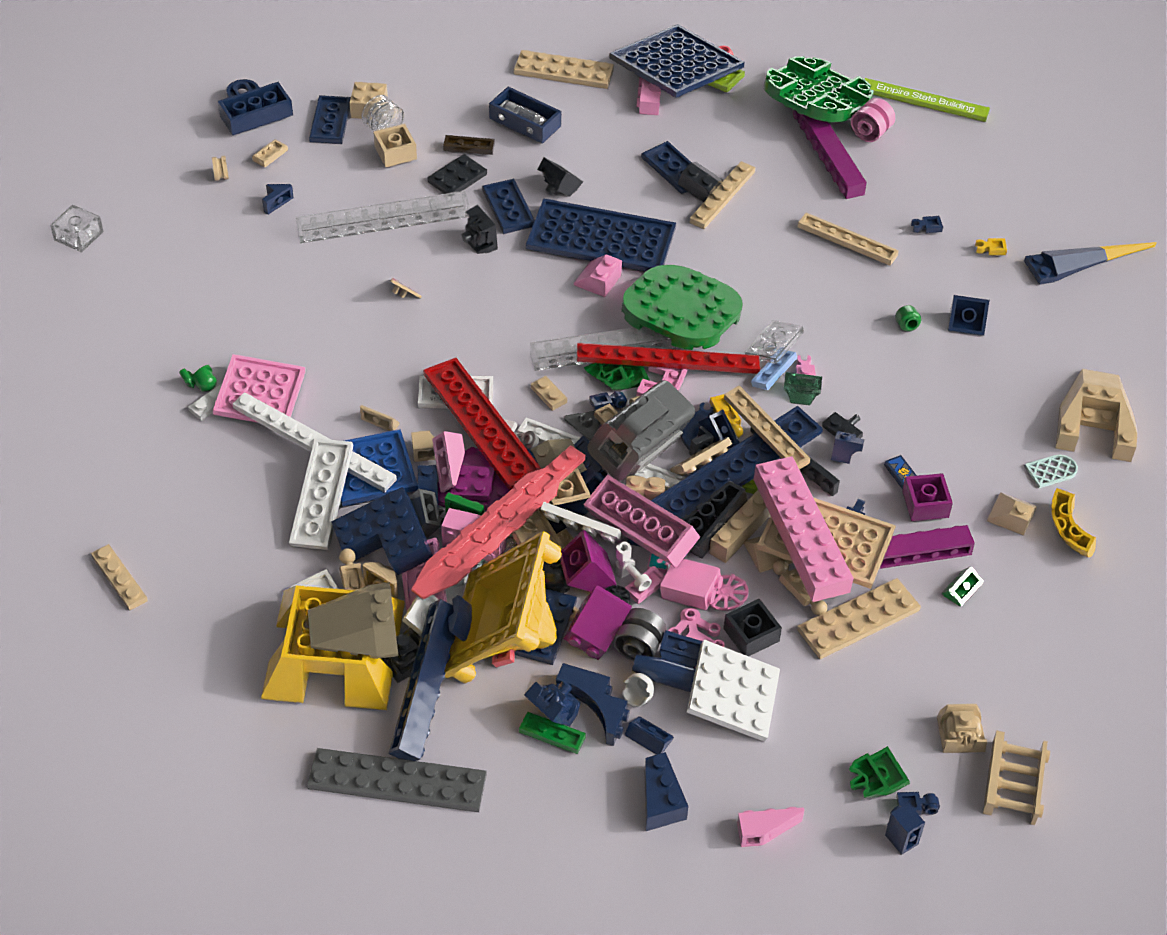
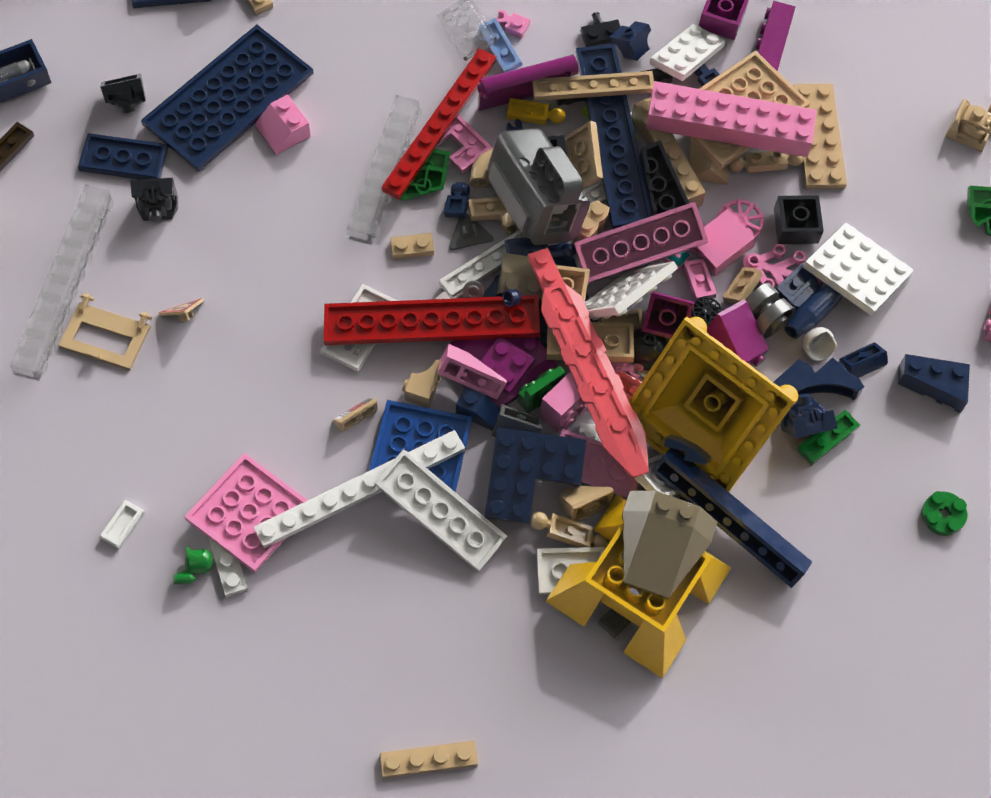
camera: 65 degrees left, 15 degrees up
(213, 331) = (122, 524): none -> white tile
(369, 259) = (110, 322): none -> tan piece
(397, 780) = (814, 595): dark grey piece -> none
(457, 175) = (43, 183): black plate -> none
(529, 455) = (511, 297): none -> dark blue hinge
(532, 838) = (953, 504): none -> green plate
(626, 566) = (677, 281): white bar -> none
(670, 617) = (742, 285): none -> tan plate
(682, 306) = (379, 76): green plate -> none
(720, 428) = (553, 124): dark blue slope -> none
(725, 377) = (516, 84): none -> magenta door
(802, 387) = (536, 35): clear green slope -> none
(864, 487) = (687, 52): none -> white plate
(899, 469) = (677, 16): tile -> none
(962, 586) = (823, 43): slope -> none

